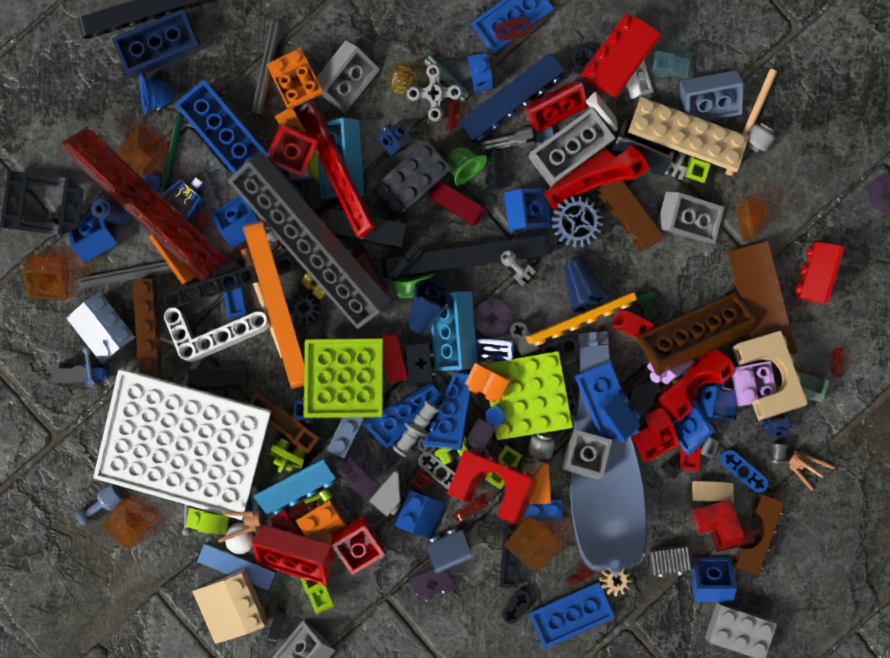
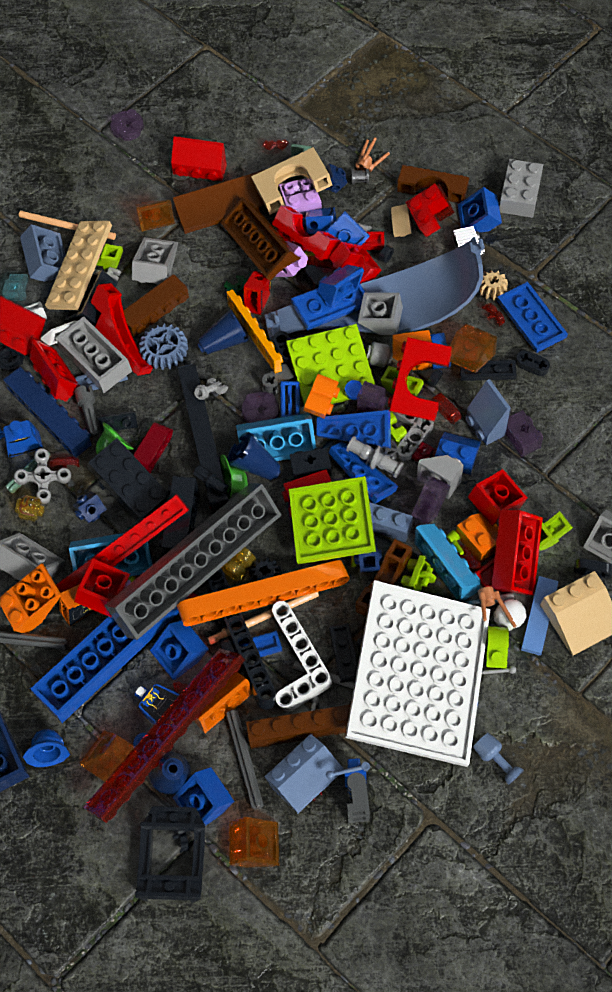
camera: 85 degrees left, 25 degrees down
(129, 522) = (512, 726): clear orange slope -> none
(171, 153) = (109, 725): dark green bar -> none
(526, 209) = (154, 389): blue slope -> none
(751, 484) = (378, 208): blue beam -> none
(760, 138) = (80, 212): light grey head -> none

